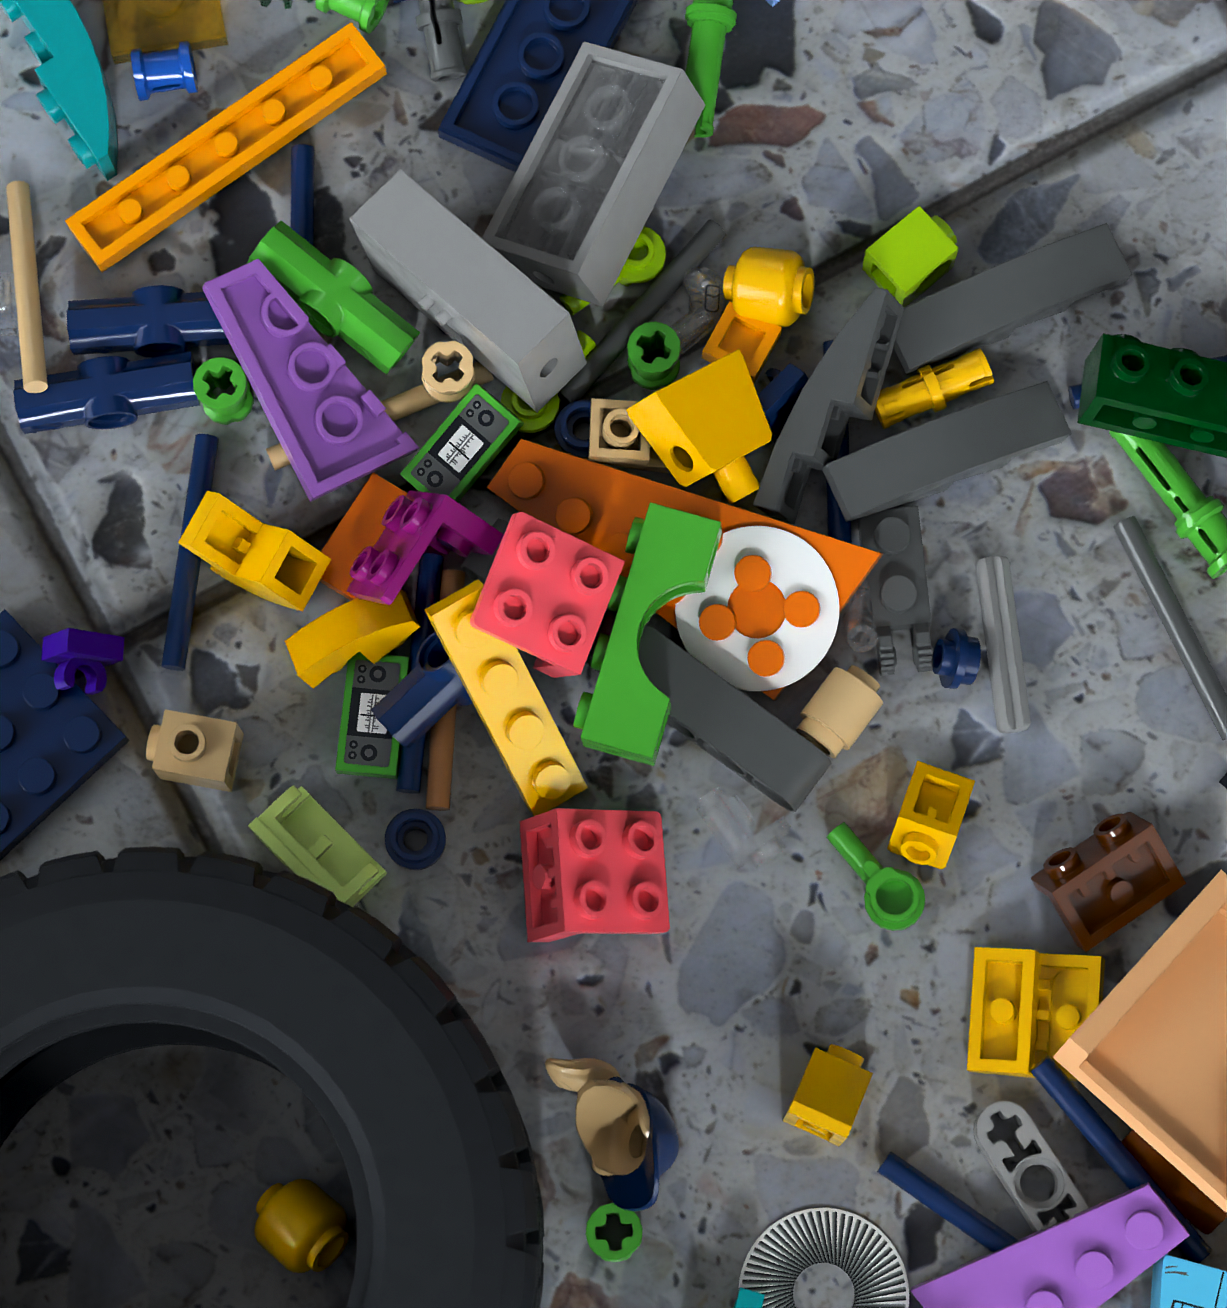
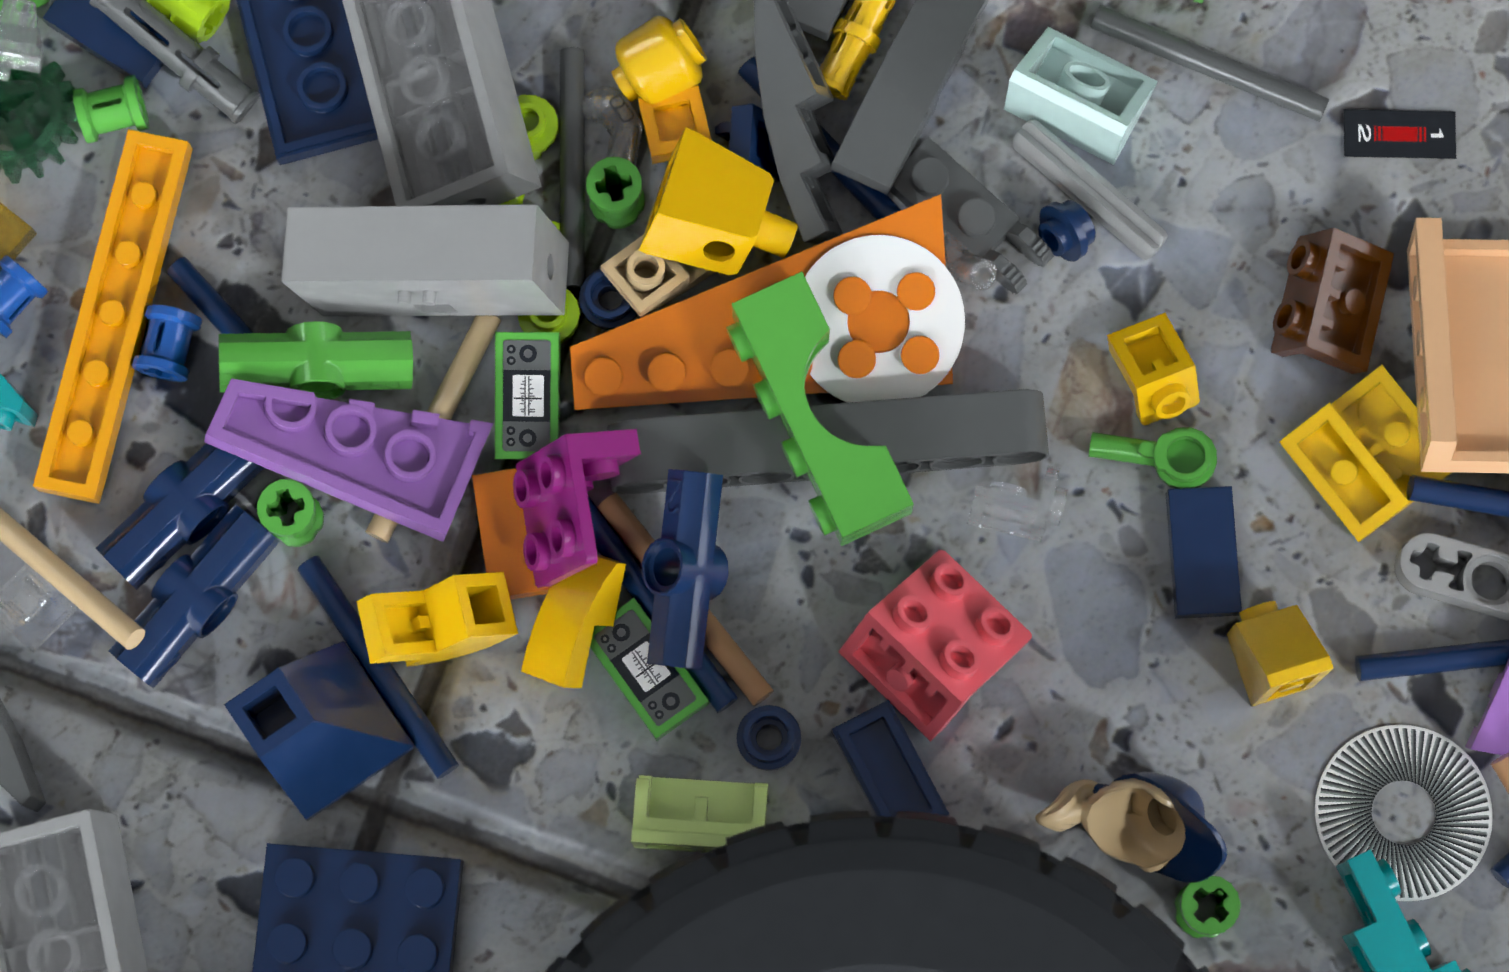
camera: 40 degrees left, 0 degrees up
(82, 651) = (365, 821): dark purple tile -> none
(109, 558) = (319, 727): none -> dark blue slope
(195, 750) = (528, 820): tan brick -> none
(245, 197) = (167, 343): none -> blue bush
(446, 353) = (448, 351): tan bush -> none
(480, 937) = (887, 763): none -> dark blue tile
(507, 704) = (749, 558): yellow plate -> none
(546, 594) = (718, 445): coral bracket -> none
(840, 710) = (1012, 345): tan brick -> none
(846, 979) = (1203, 552): none -> dark blue tile
(1059, 567) = (1078, 94): none -> light aqua slope

